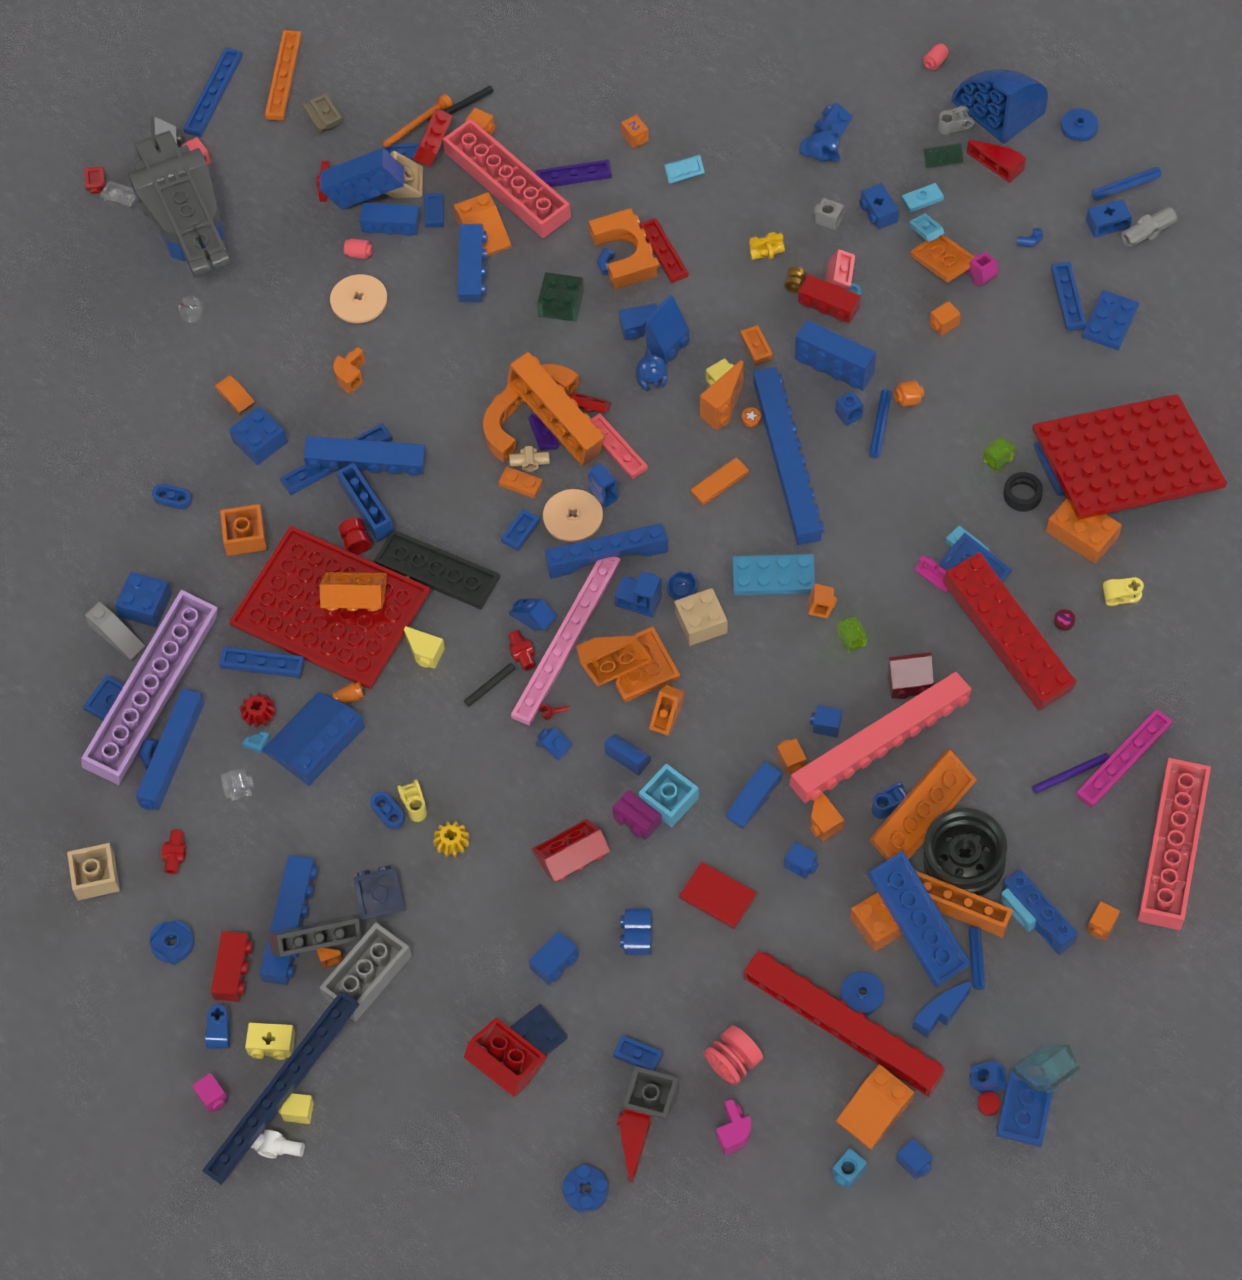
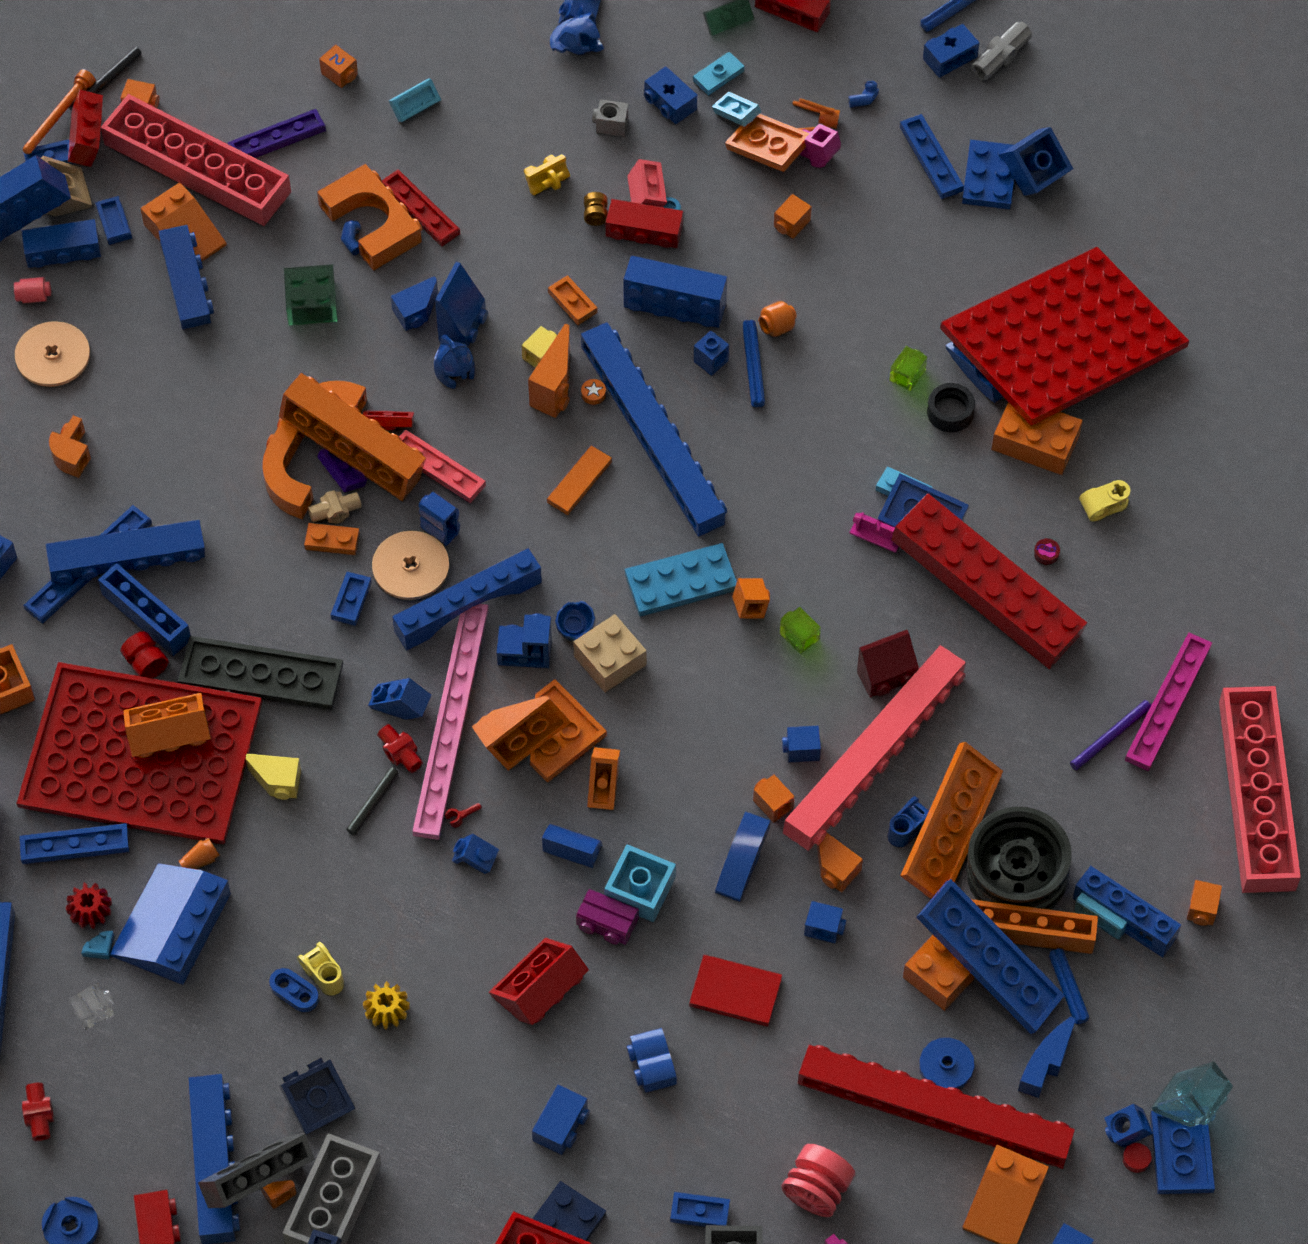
camera: 20 degrees left, 0 degrees up
(996, 248) = (828, 116): none -> orange plant
(1148, 317) = (1037, 161): none -> blue brick

